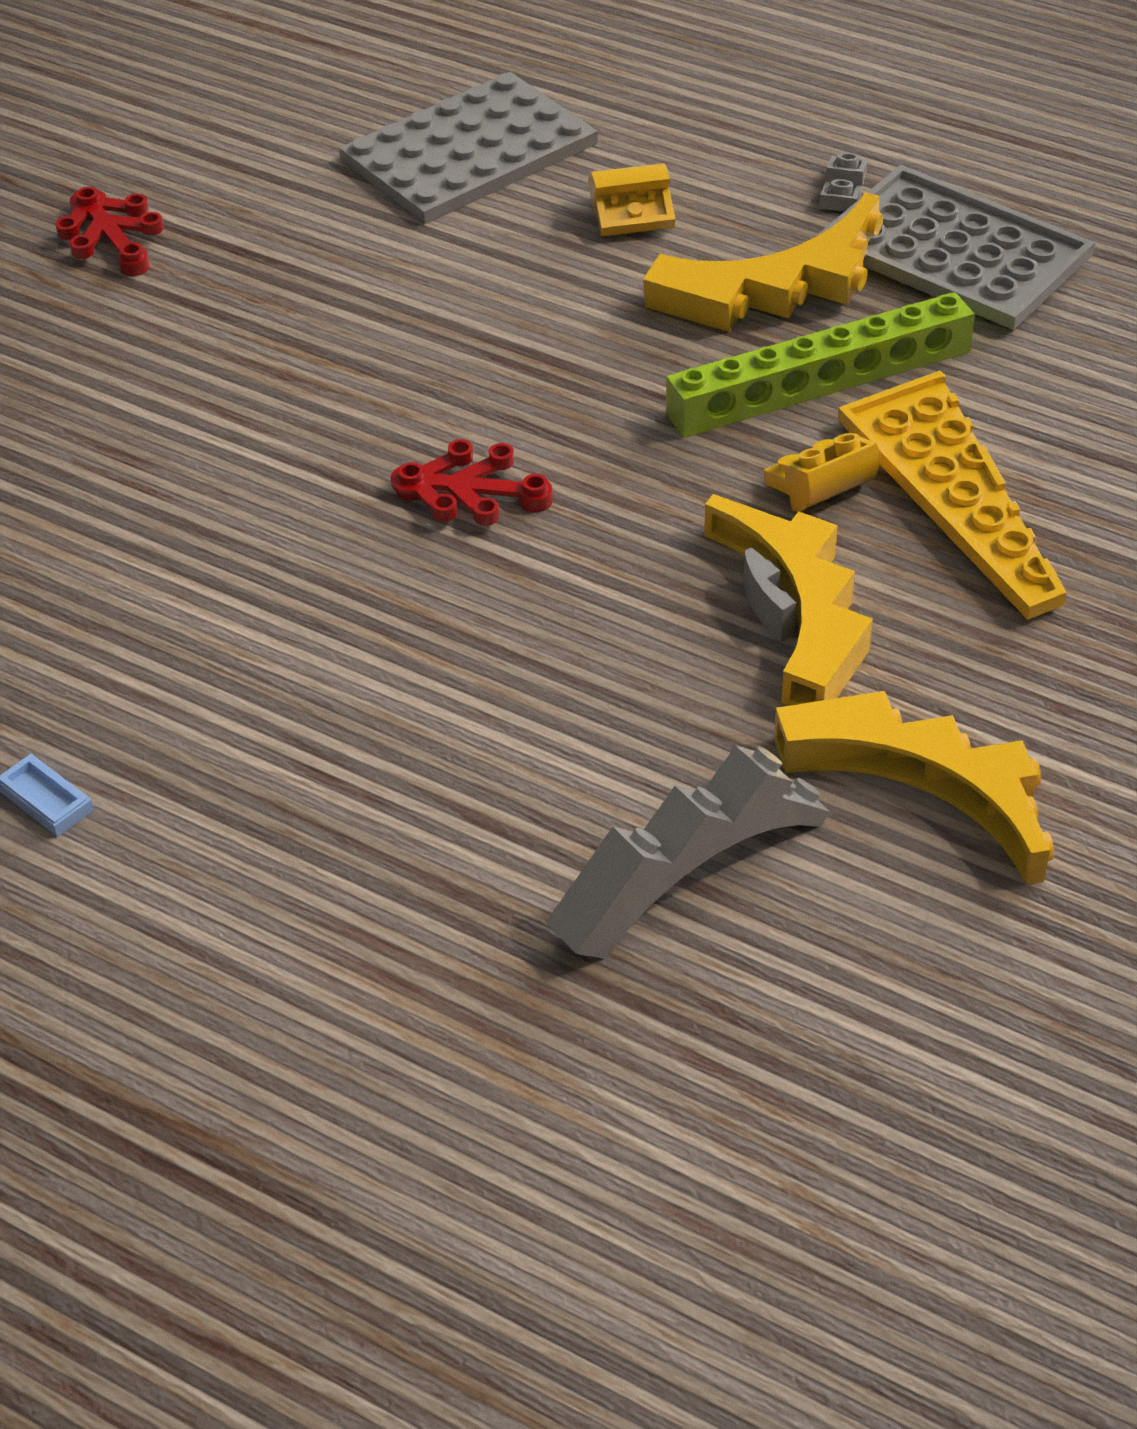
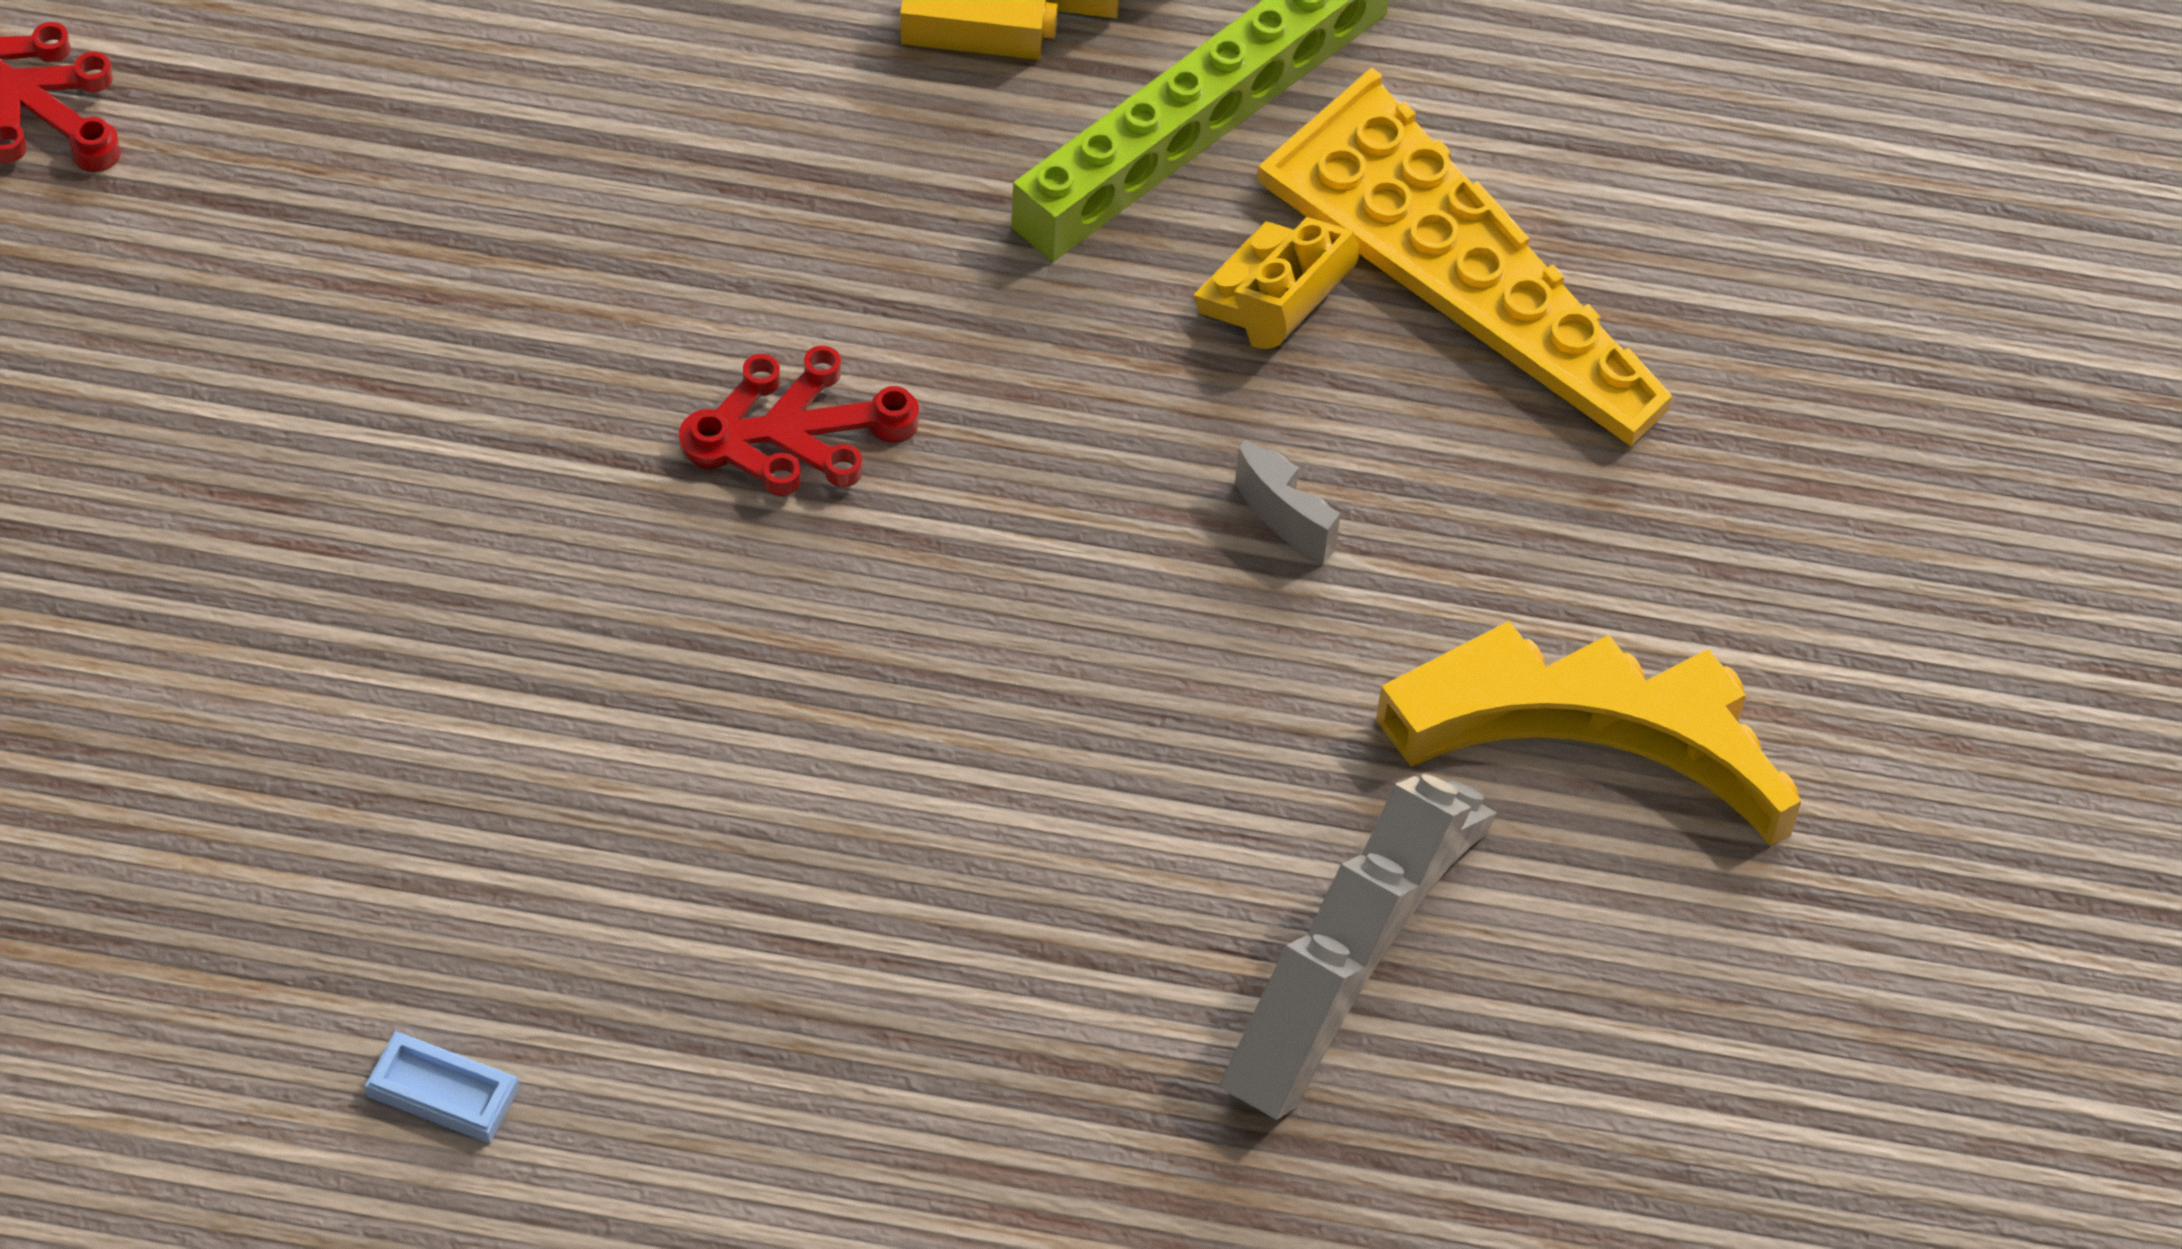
camera: 25 degrees left, 10 degrees up
(830, 636) = (1388, 545): yellow arch -> none

